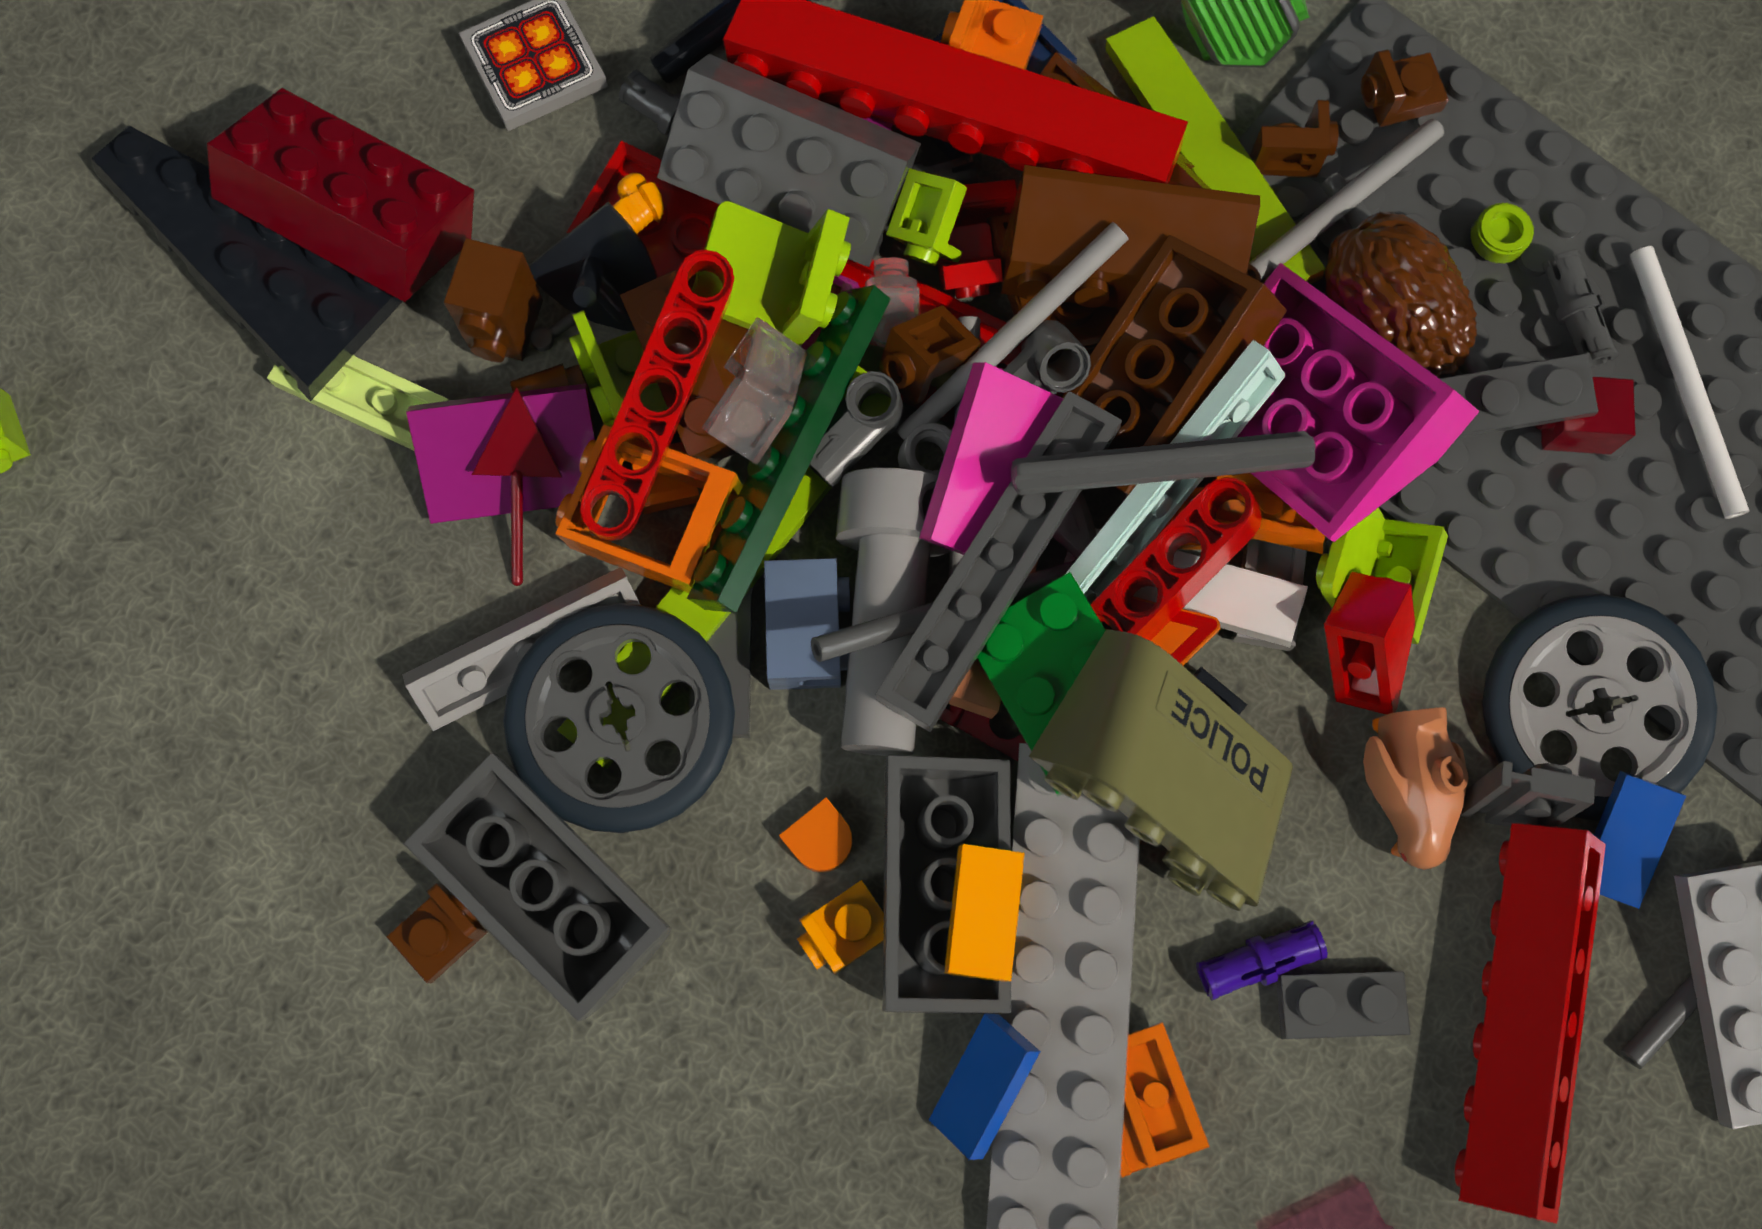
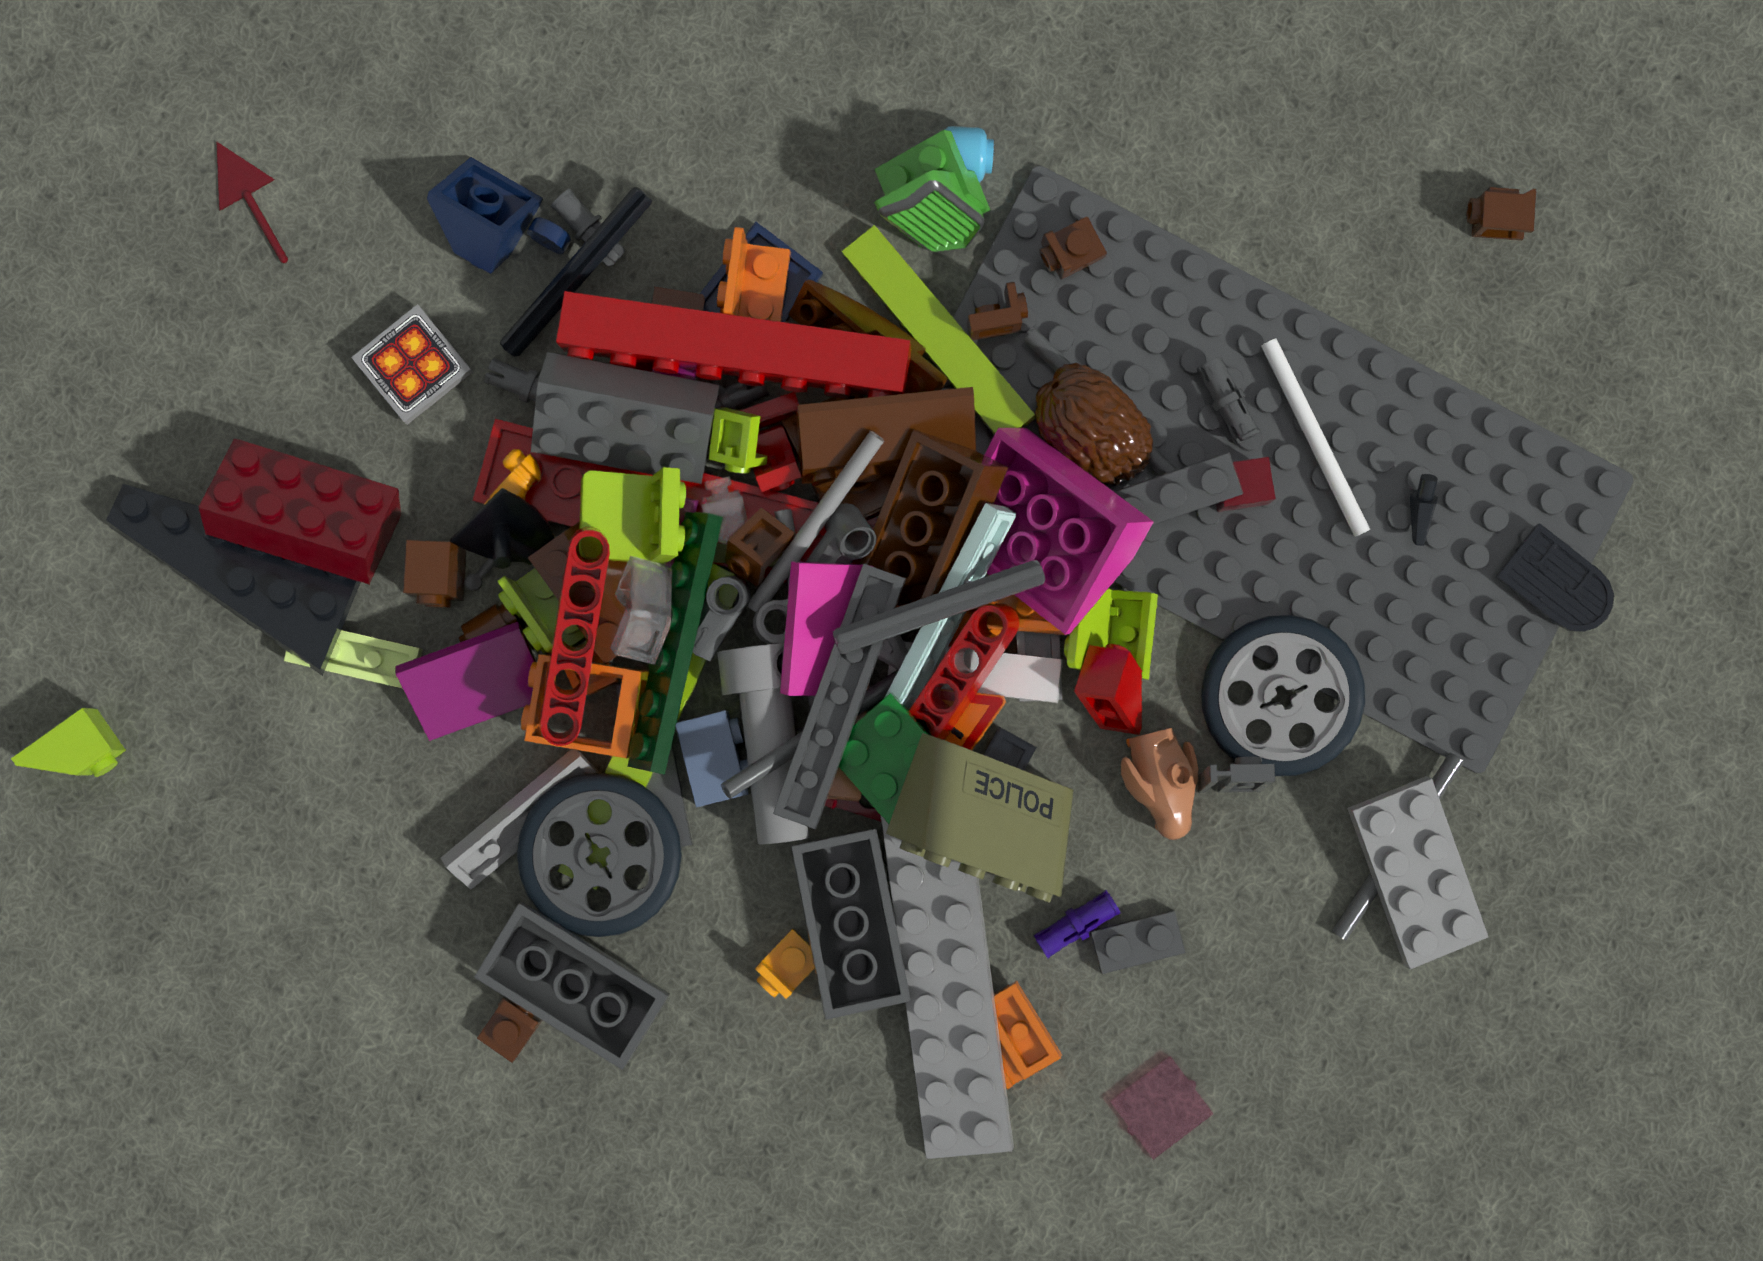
camera: 10 degrees left, 10 degrees up
(517, 452) = (480, 682): dark red piece -> none
(819, 838) = (757, 906): orange tile -> none
(984, 913) = (879, 940): light orange tile -> none
(984, 1086) = (903, 1051): blue tile -> none
(1345, 200) = (1040, 356): light grey piece -> none
(1502, 233) = (1163, 349): lime tile -> none
(1531, 1021) = (1264, 928): red brick -> none
(1635, 834) = (1315, 787): blue tile -> none

